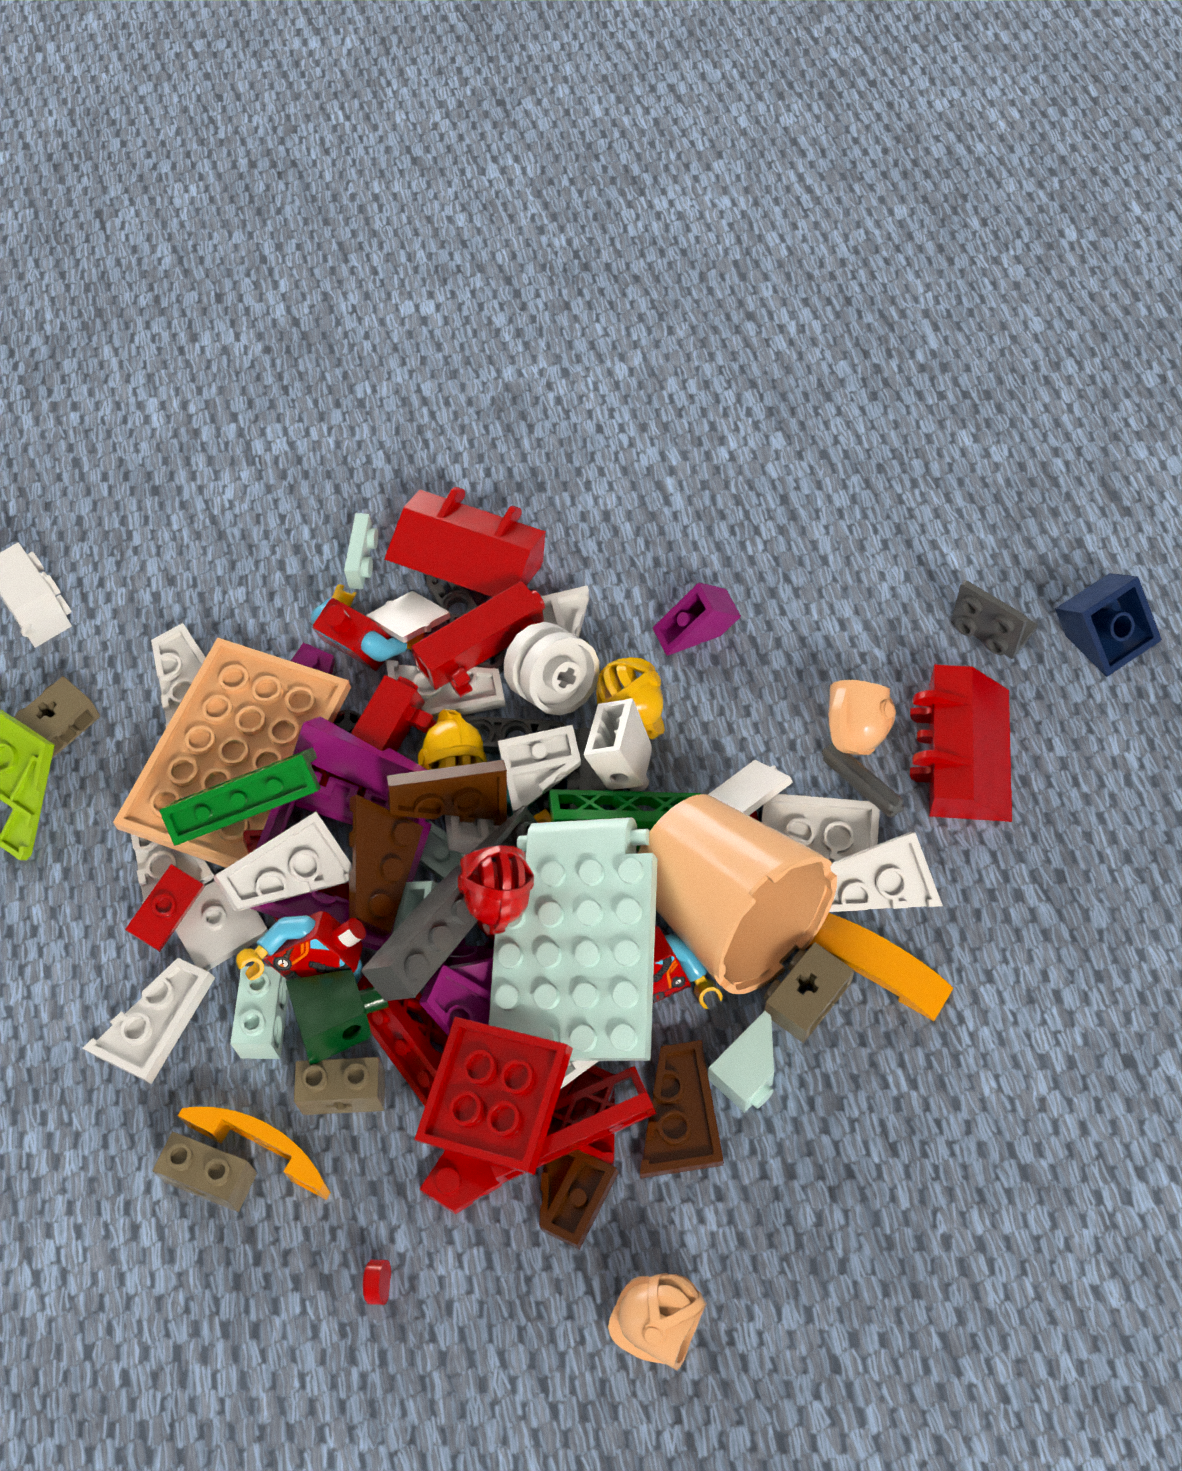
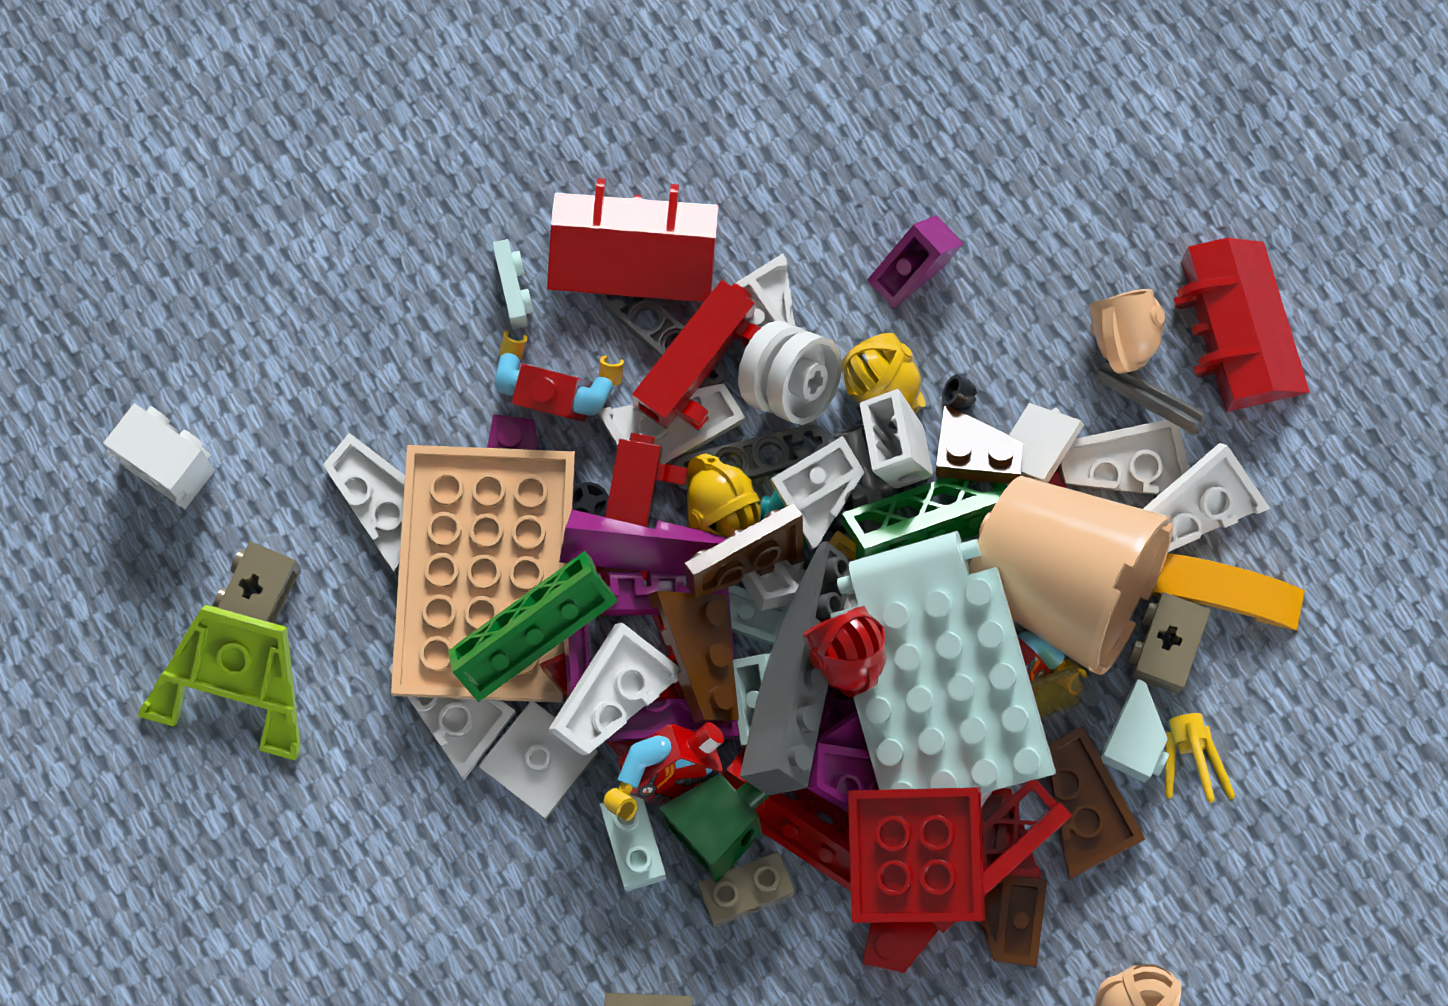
camera: 25 degrees left, 15 degrees up
(150, 1029) = (523, 891): white wing -> none
(165, 908) = (484, 765): red plate -> none
(219, 1121) = (634, 966): light orange slope -> none
(409, 616) = (599, 349): white piece -> none
(680, 1000) = (1057, 691): none -> clear yellow piece
(688, 774) = (976, 450): none -> wing
(696, 734) = (964, 396): none -> black hinge
(799, 1082) = (1193, 737): none -> yellow plant
(991, 621) = (1228, 169): dark grey bracket -> none
(1110, 622) = (1347, 134): dark blue slope -> none

